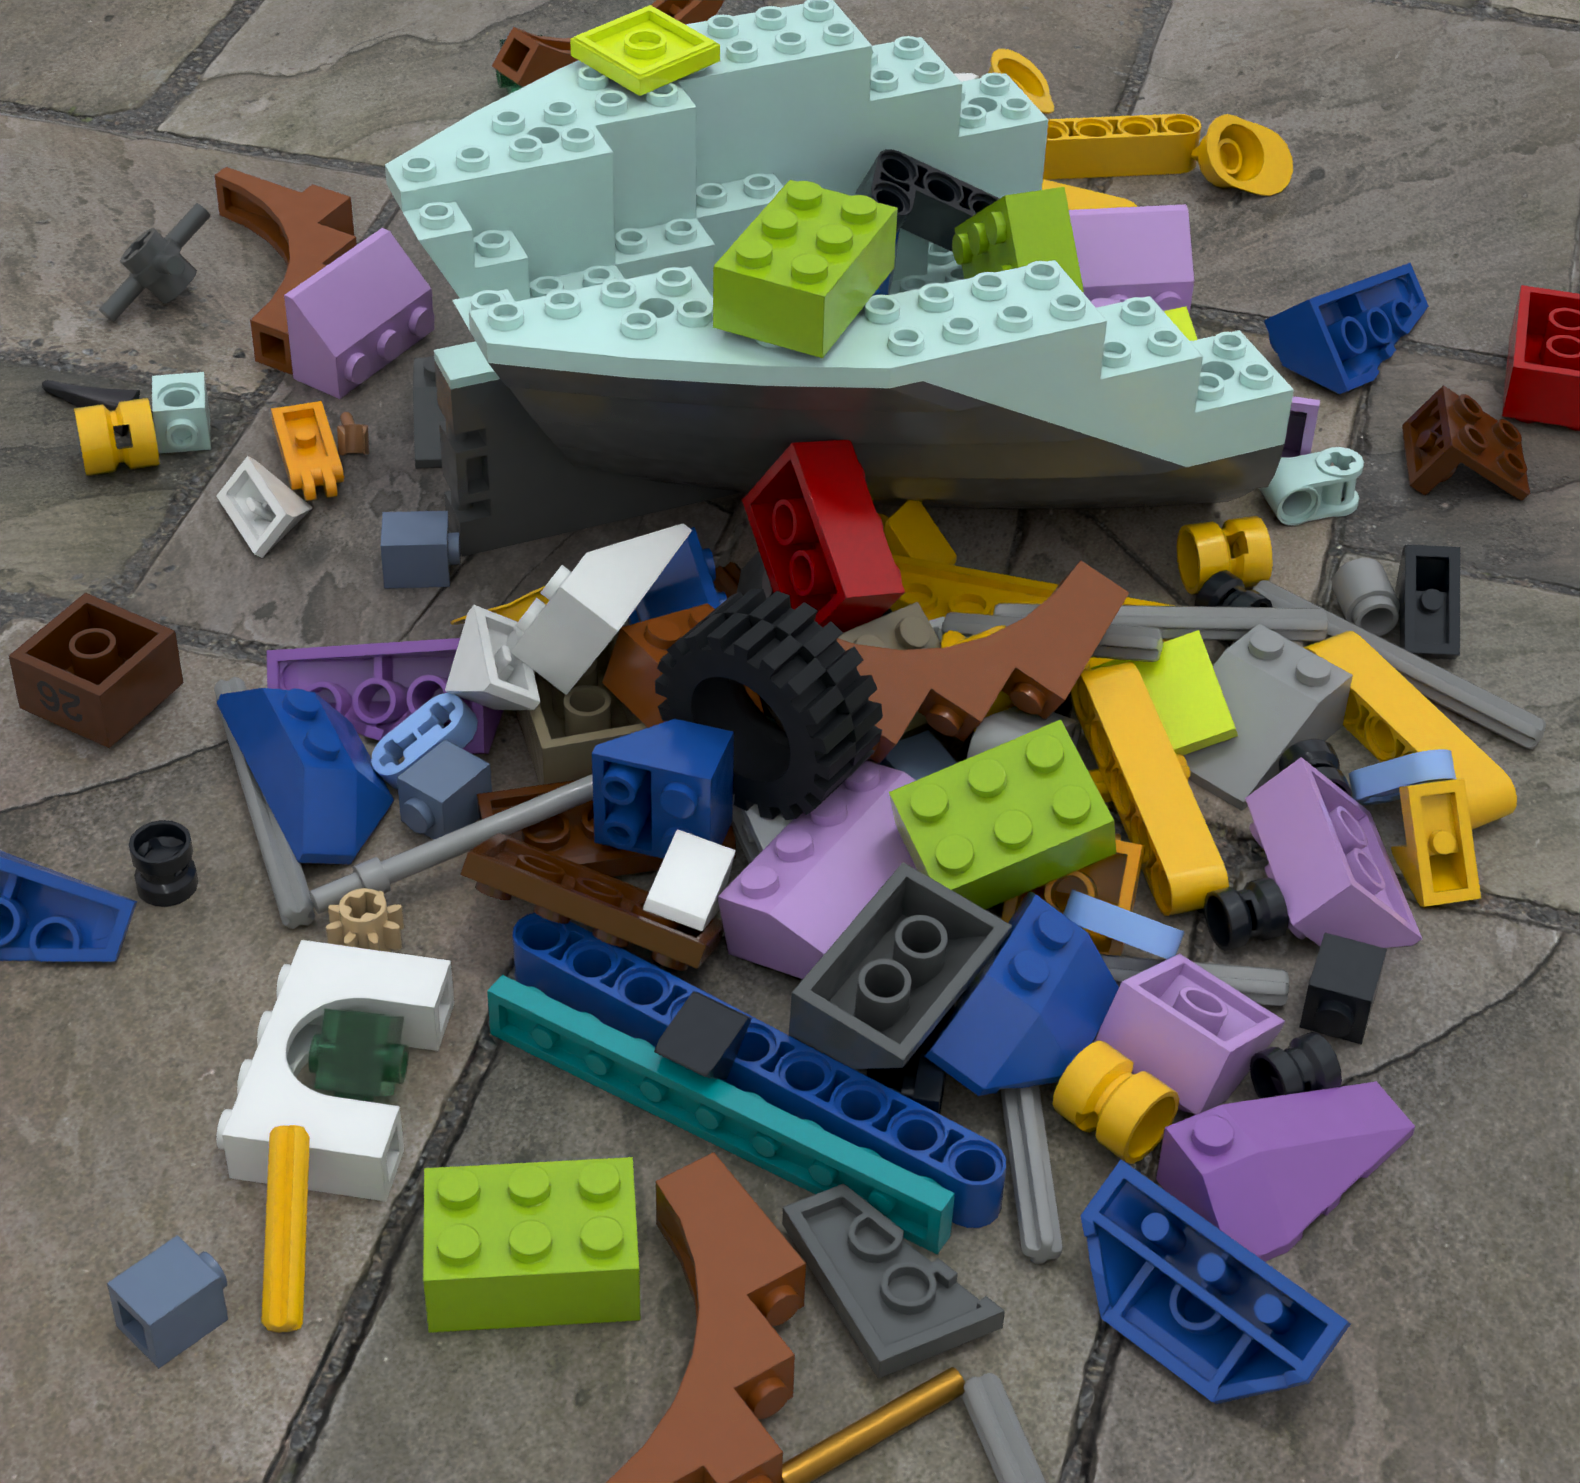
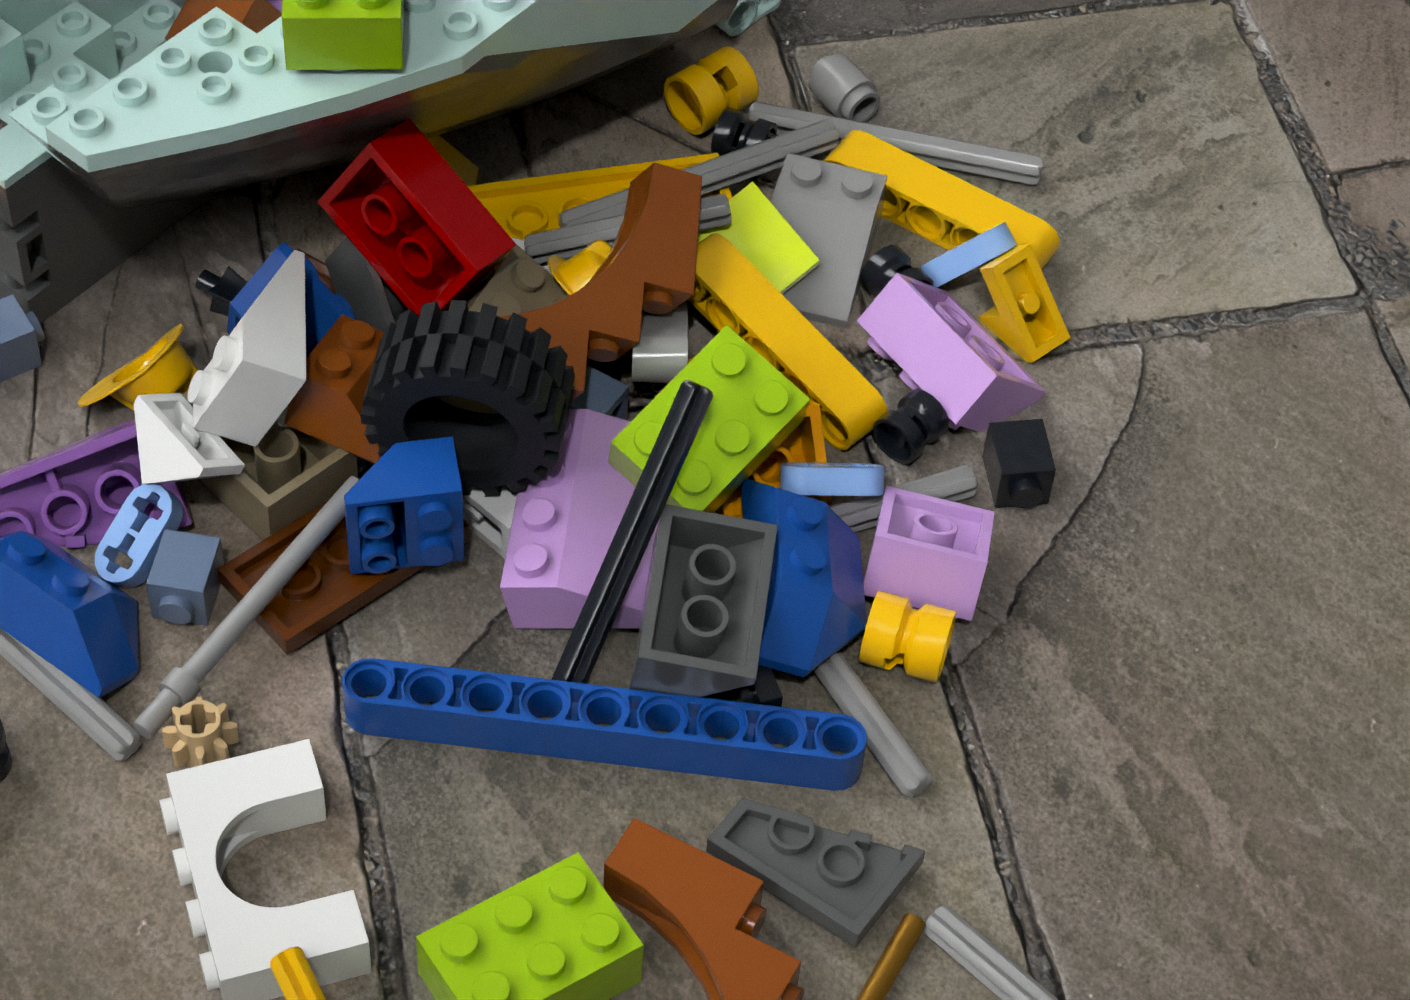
camera: 30 degrees left, 10 degrees up
(359, 1054) = (281, 857): clear green brick -> none
(572, 891) = (397, 631): reddish brown plate -> none
(690, 881) = (467, 583): white slope -> none
(704, 1037) = (572, 721): black slope -> none
(717, 1111) = (592, 776): teal plate -> none
(863, 880) = (634, 533): none -> black axle
(1199, 1295) = (1064, 774): blue wedge -> none
(1279, 1160) = (1048, 640): medium lavender wedge -> none
(1302, 1067) = (1027, 548): black wheel -> none
(1429, 601) = (901, 76): black slope -> none

